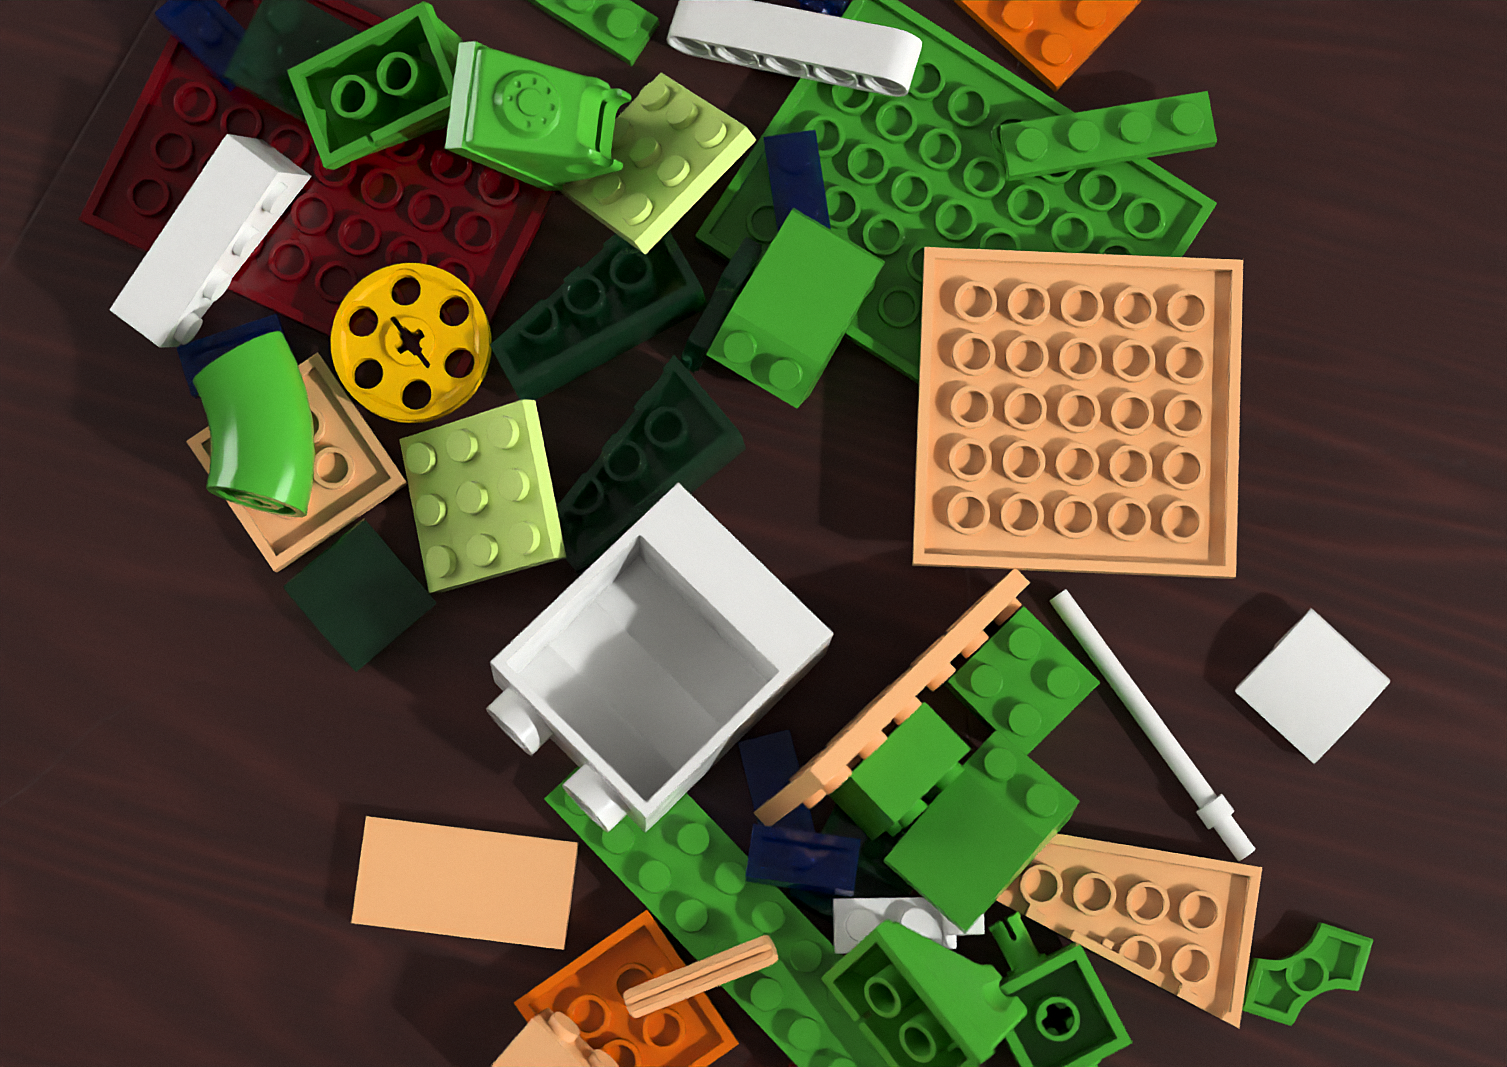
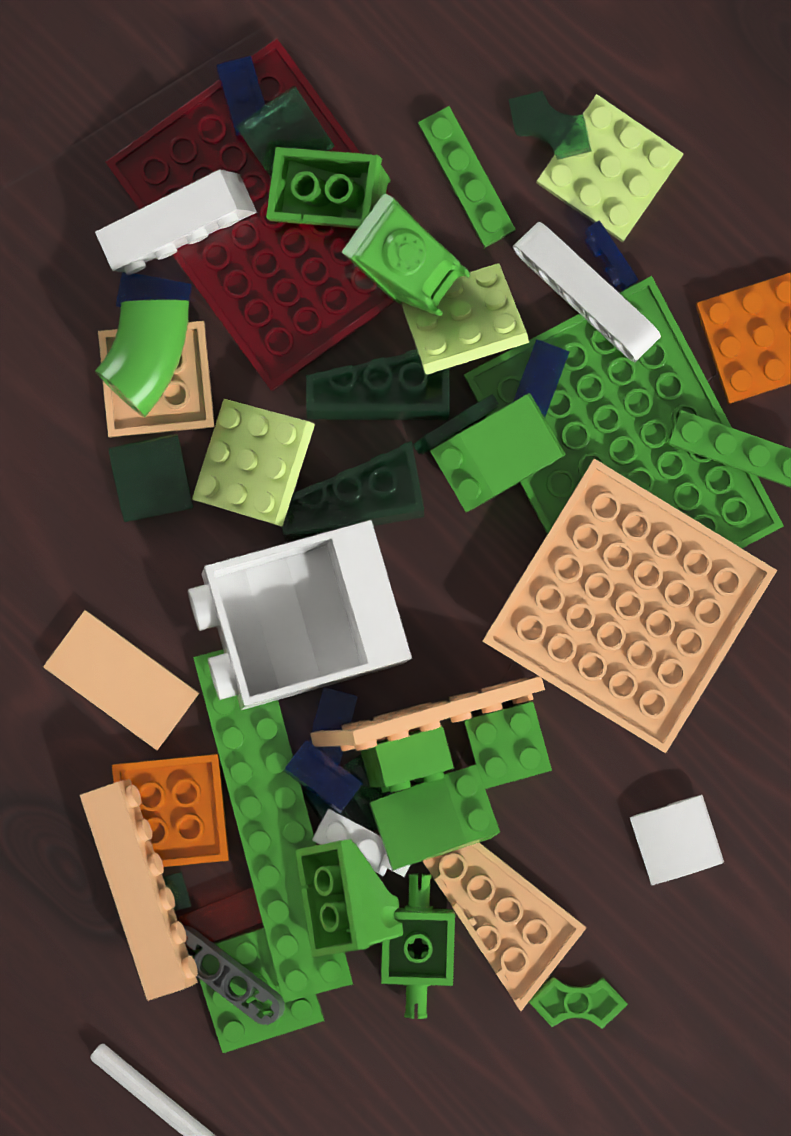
camera: 25 degrees right, 5 degrees up
(384, 343) = (245, 338): yellow wedge -> none
(700, 976) = (227, 810): light nougat axle -> none
(1213, 809) = (578, 879): white bar -> none

